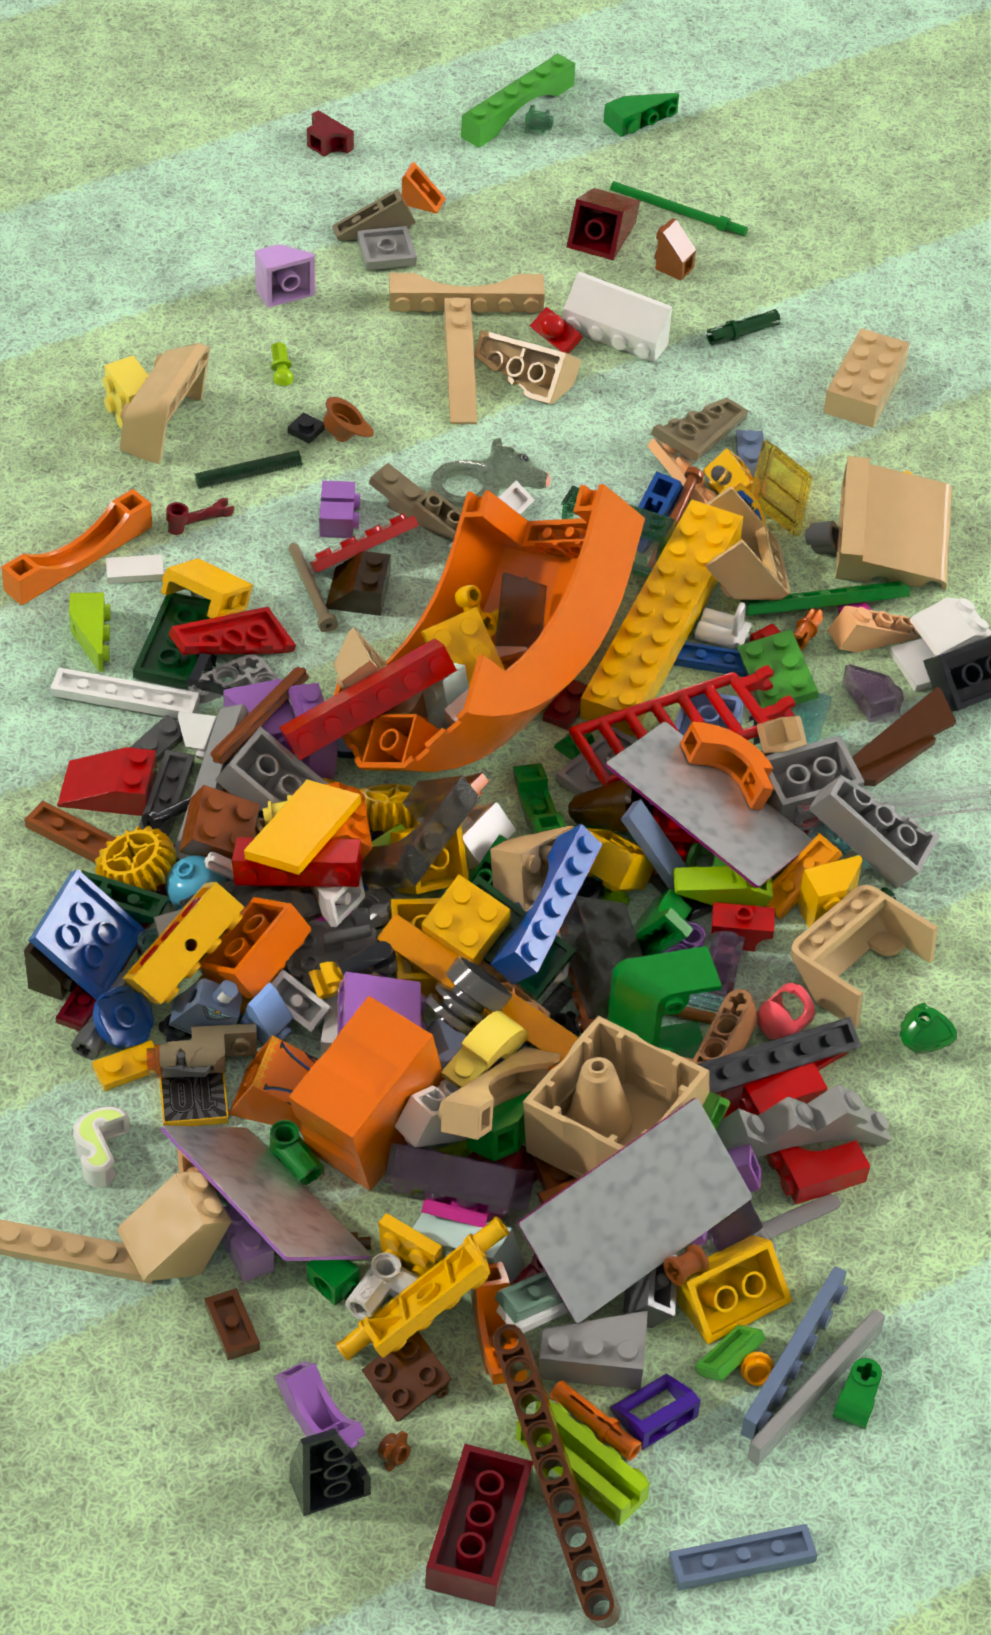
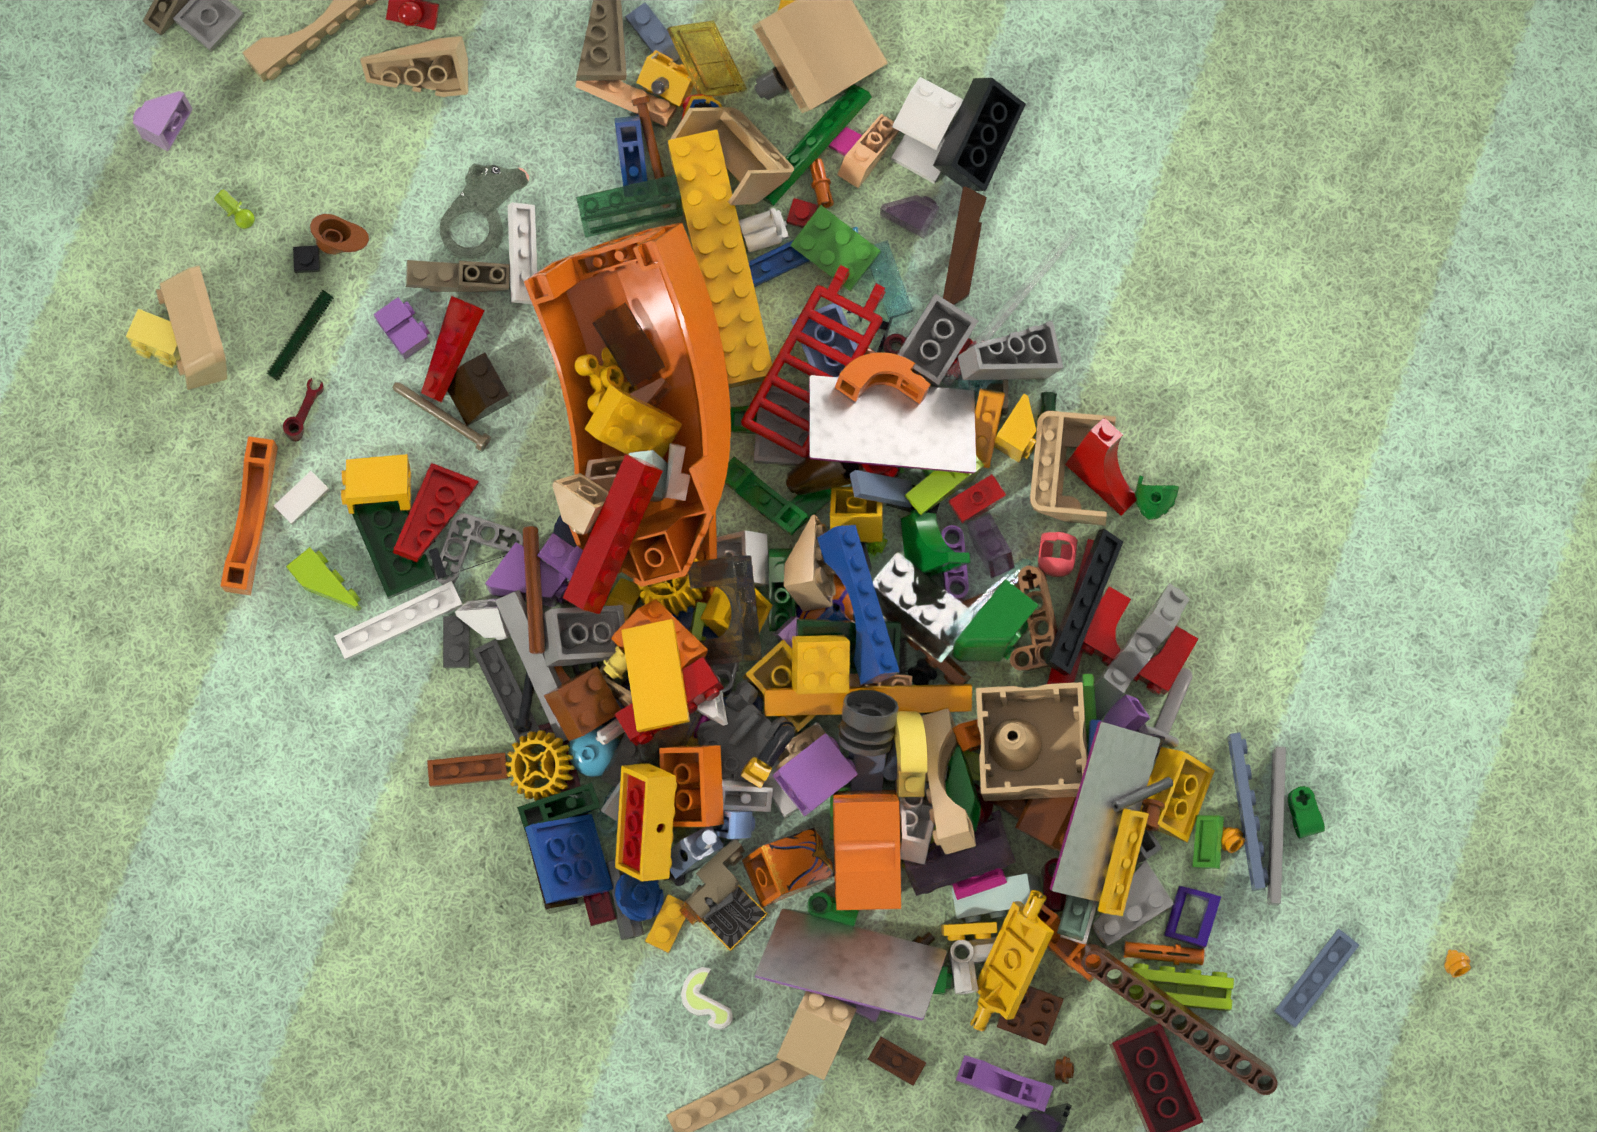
camera: 35 degrees left, 30 degrees up
(110, 781) = (455, 708): red slope -> none
(460, 360) = (367, 102): tan slope -> none
(619, 1277) = (1123, 862): none -> yellow plate
(692, 1231) = (1142, 794): none -> dark grey piece
(781, 734) = (896, 324): tan panel -> none
(889, 966) = (1098, 466): none -> red arch

